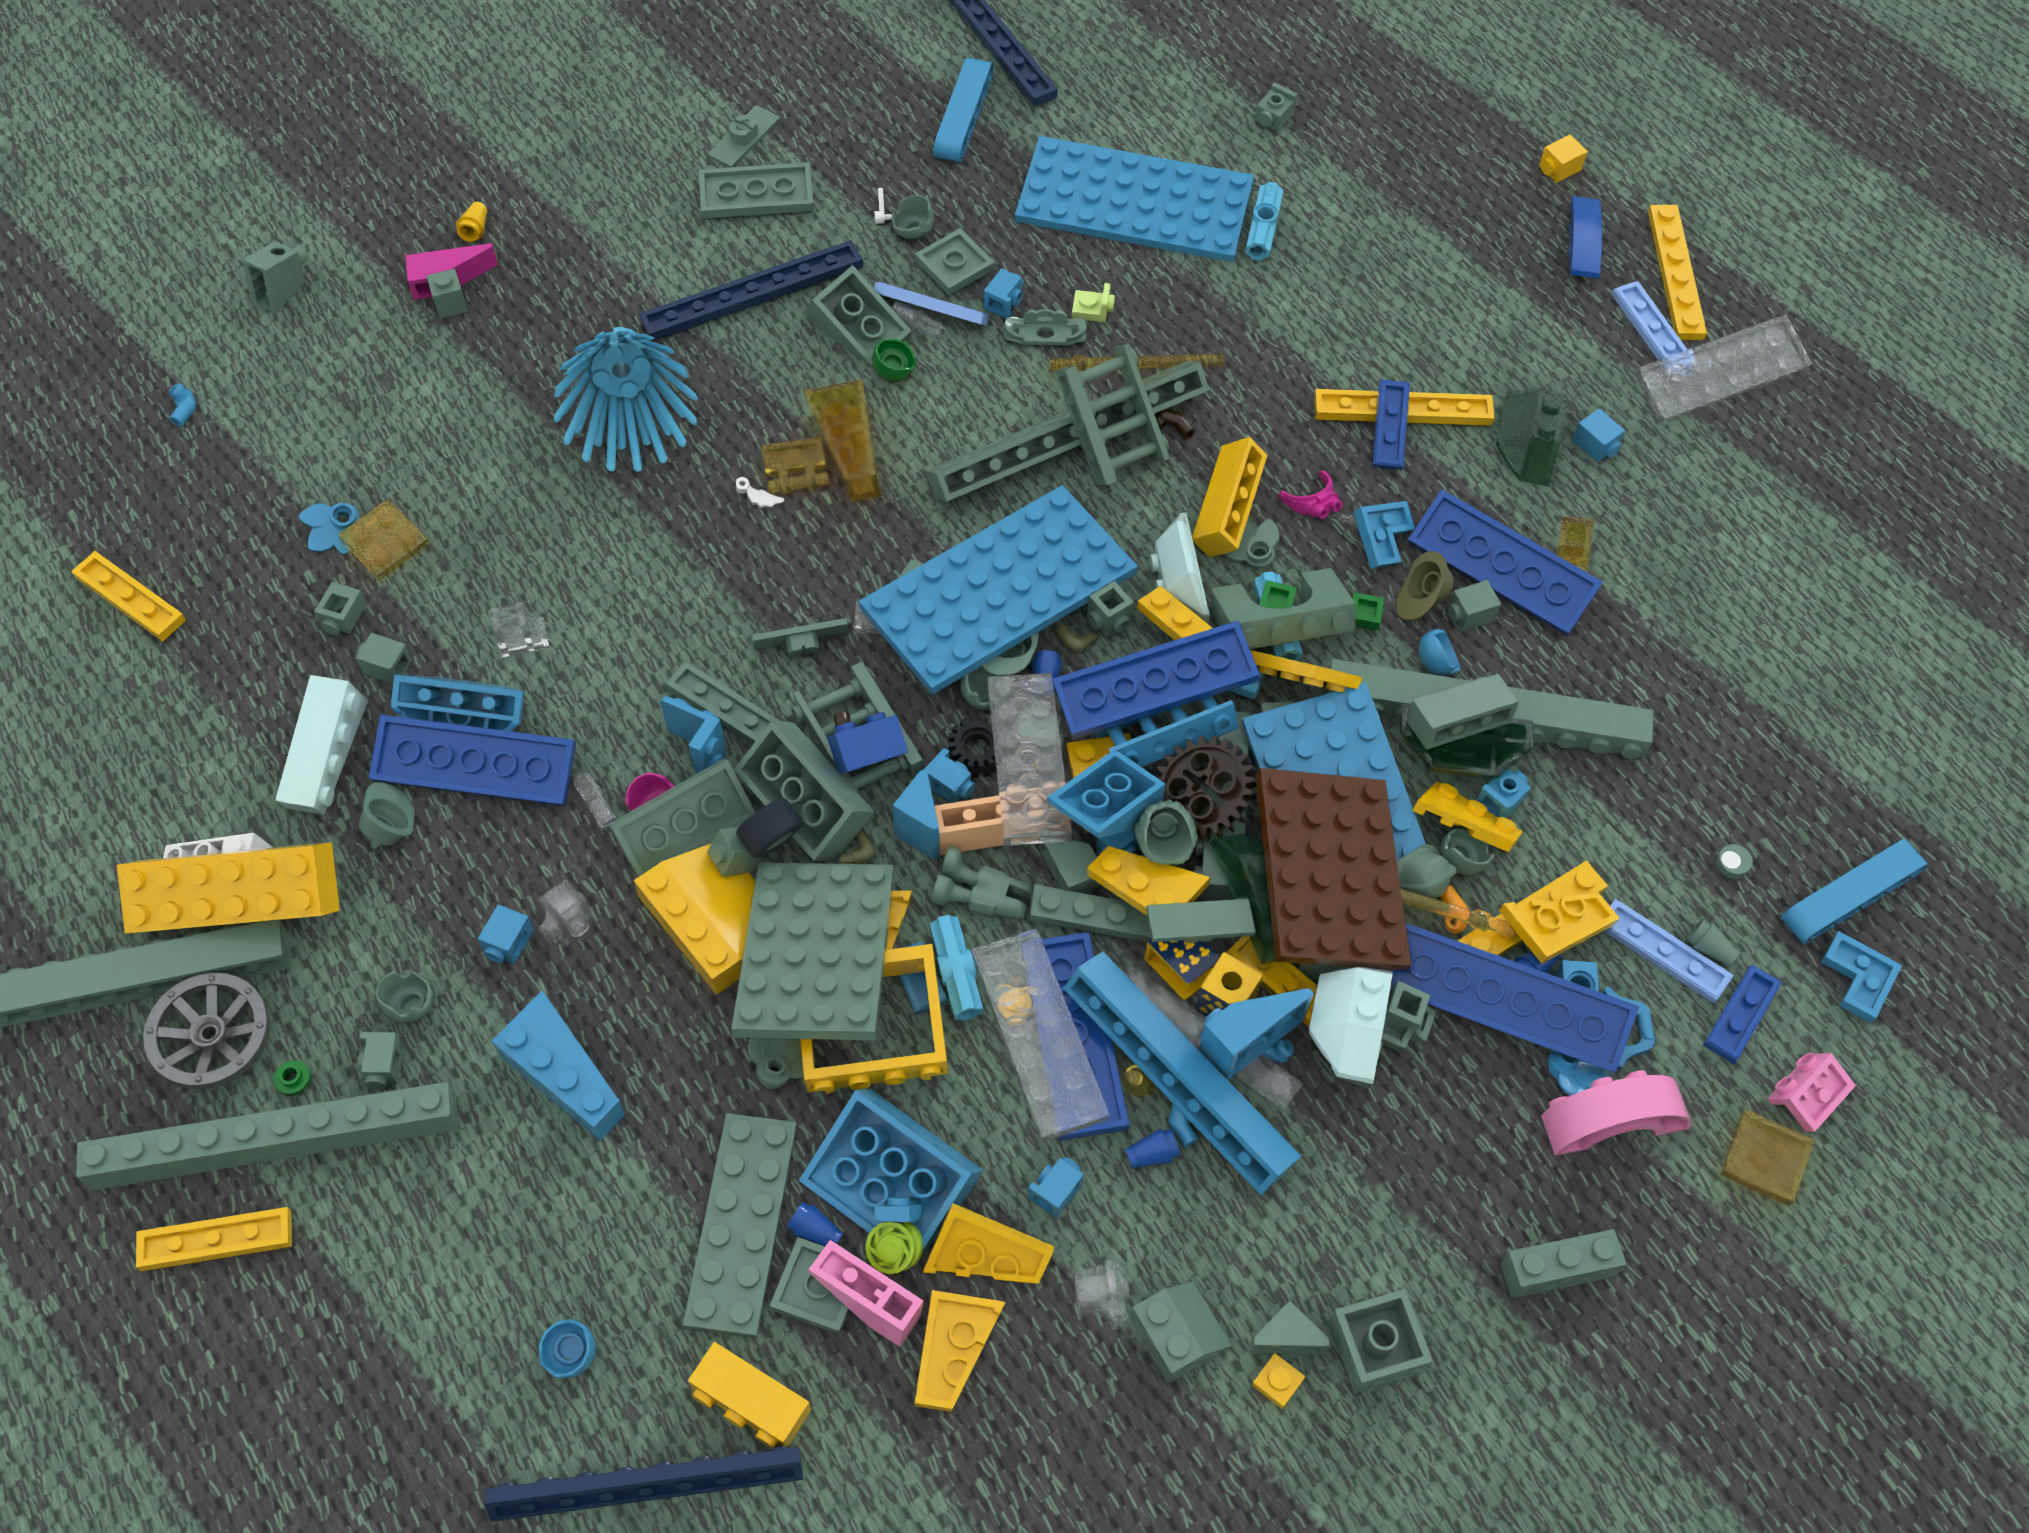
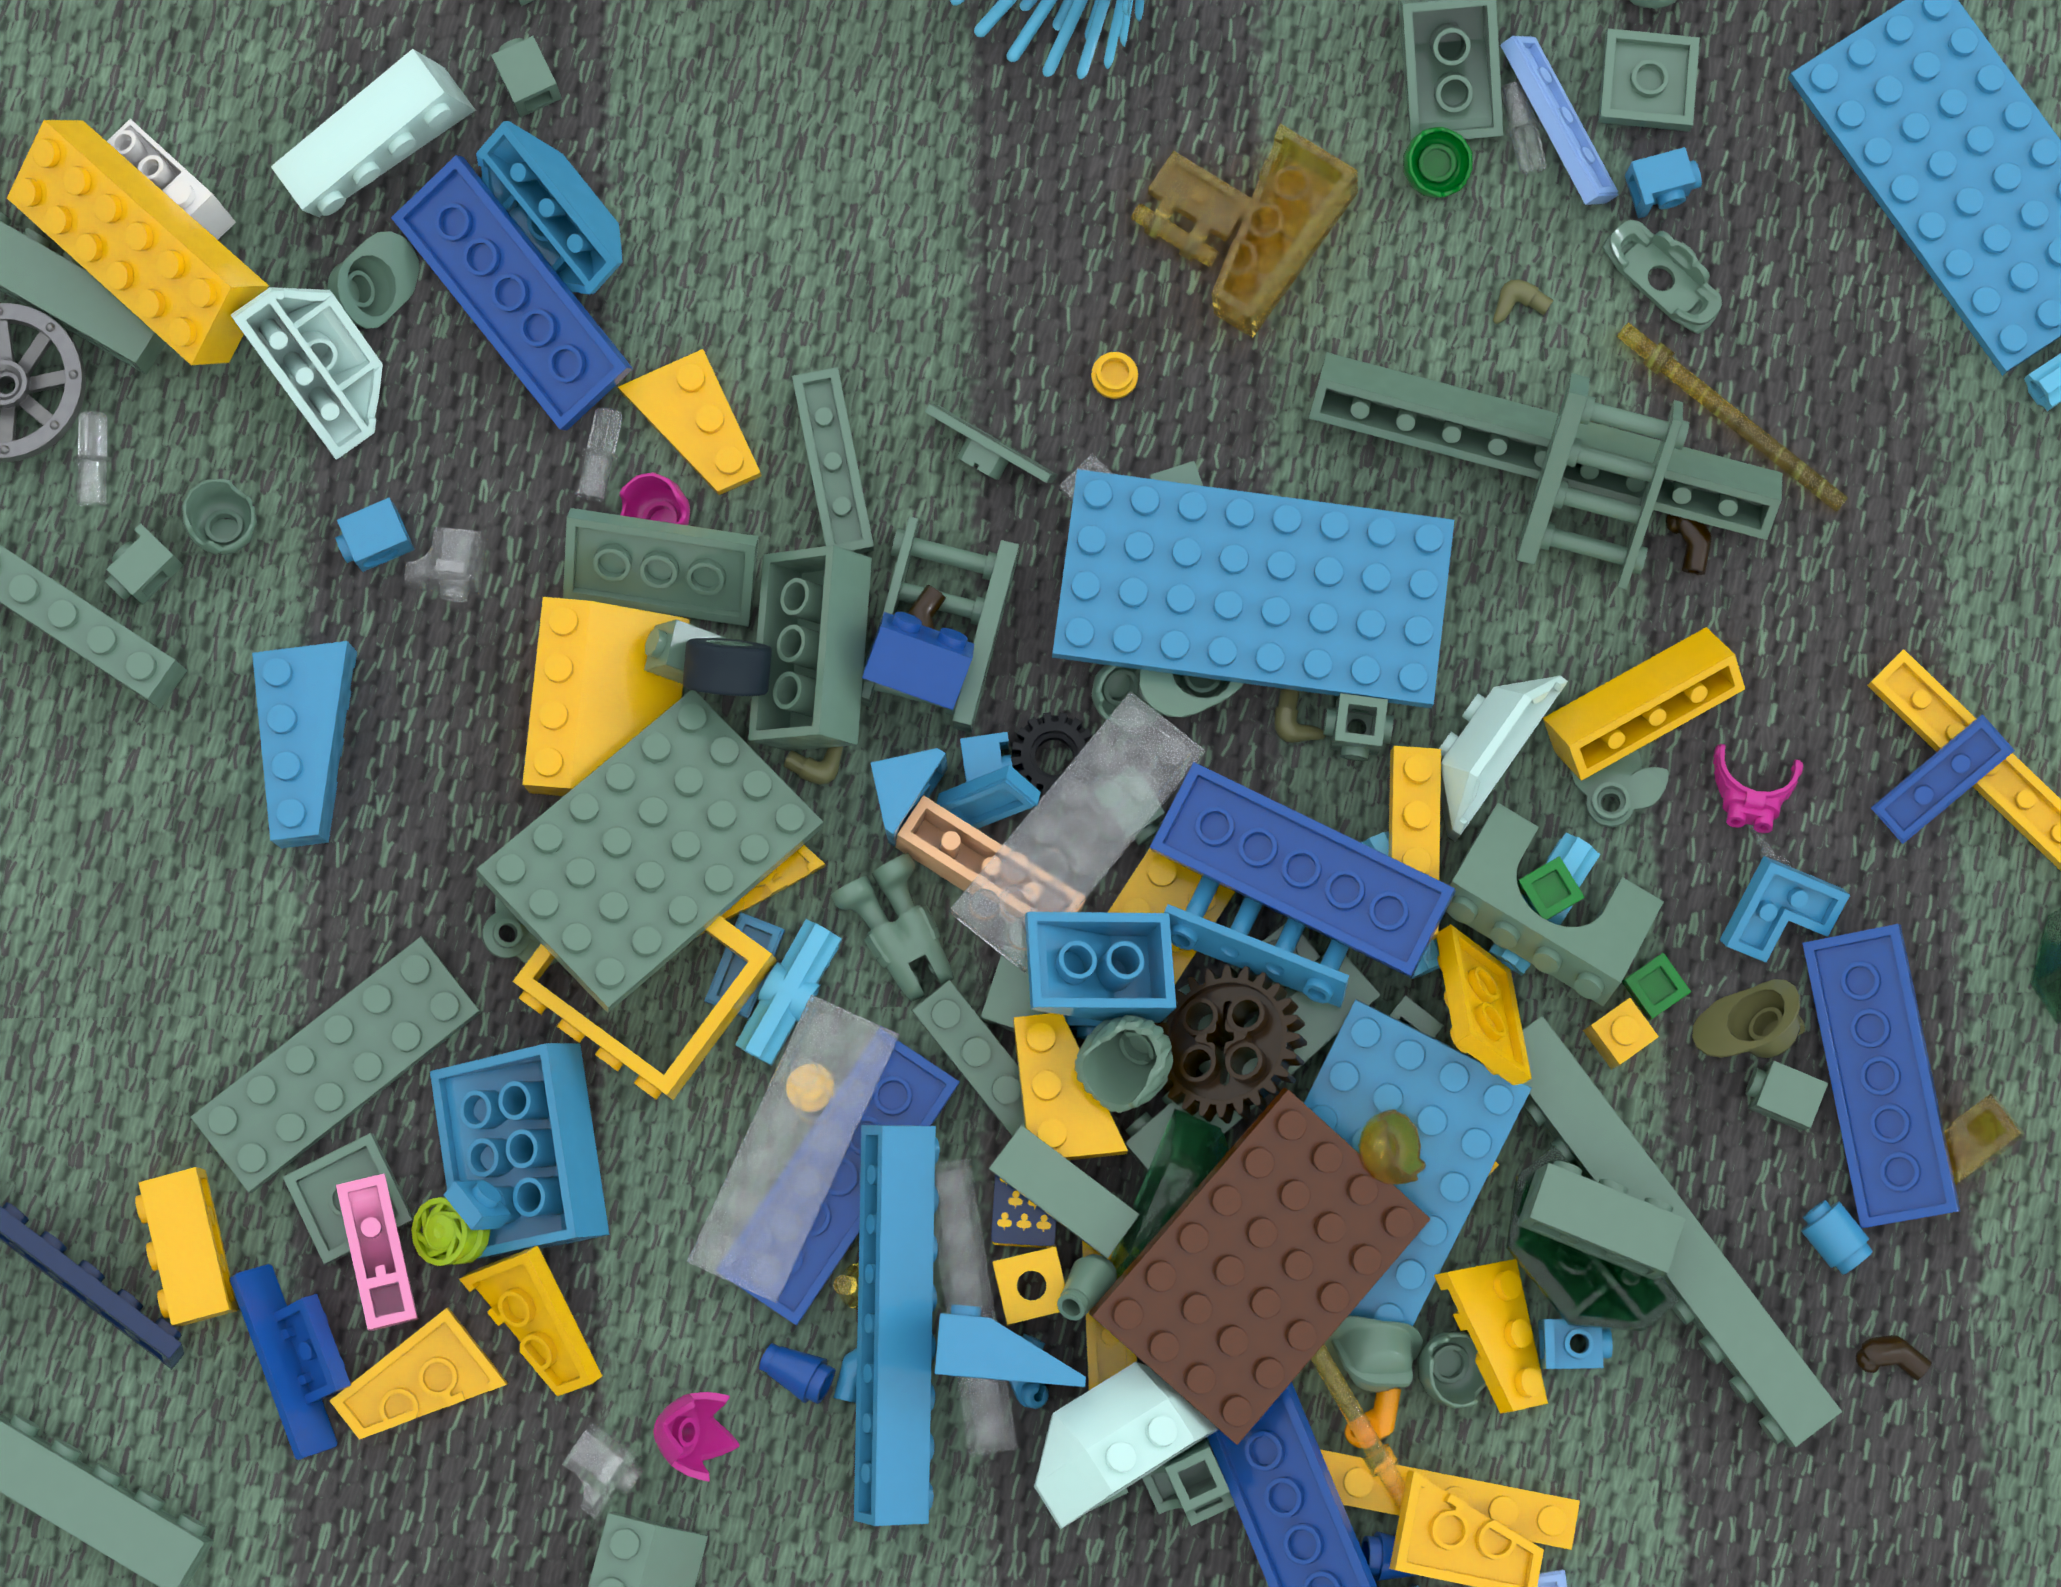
camera: 45 degrees right, 20 degrees up
(296, 1085) = (57, 516): green plate -> none
(298, 1031) = (92, 459): none -> clear axle
(390, 871) = (317, 361): none -> light aqua wedge
(517, 630) = (694, 166): clear brick -> none
(567, 1340) = (74, 1029): dark azure hair -> none
(631, 744) = (696, 419): none -> yellow wing
(698, 727) = (764, 502): dark azure bracket -> none
(757, 497) = (1114, 215): white piece -> none
(813, 1225) = (397, 1136): blue cone -> none
(830, 561) = (1114, 375): none -> yellow plate
(873, 1395) = (295, 1357): none -> blue bracket
(969, 776) = (990, 797): none -> dark azure tile
(990, 384) = (1521, 292): none -> olive animal
(1047, 662) = (1218, 733): blue cone -> none
(1056, 1186) = (665, 1318): dark azure brick -> none
(1093, 305) = (1758, 288): yellowish green bracket -> none
(1129, 1234) = (690, 1434): none -> dark pink piece
(1259, 954) = (1086, 1285): none -> sand green cone
(1333, 762) = (1391, 1148): none -> clear yellow hair
(1374, 641) = (1620, 1033): none -> yellow brick
(1438, 654) = (1679, 1117): dark azure hair -> none
(1562, 645) = (1836, 1236): none -> dark azure brick
(1641, 673) = (1891, 1351): none -> dark brown arm

